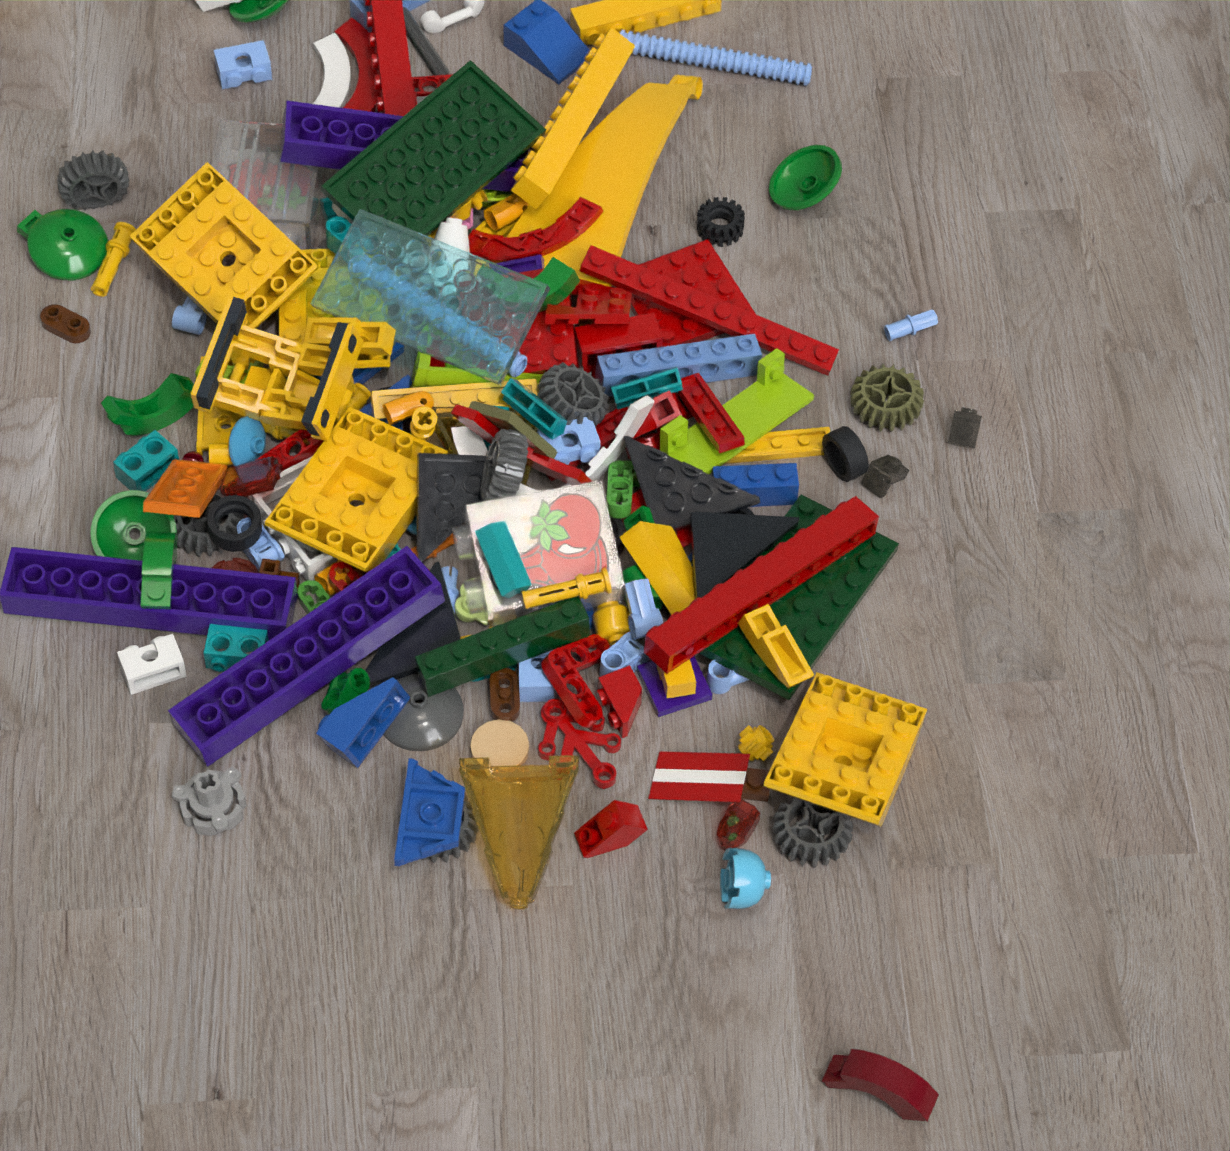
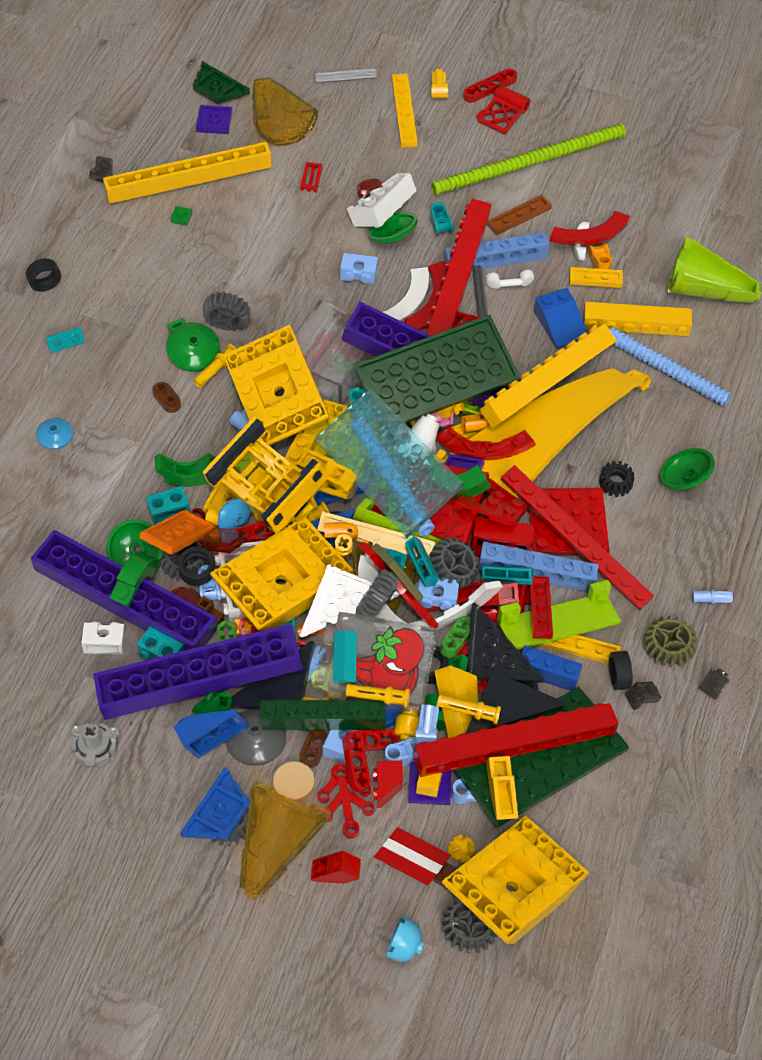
camera: 25 degrees right, 0 degrees up
(701, 563) = (478, 710): none -> yellow pin
(737, 825) = (421, 901): clear red rock -> none

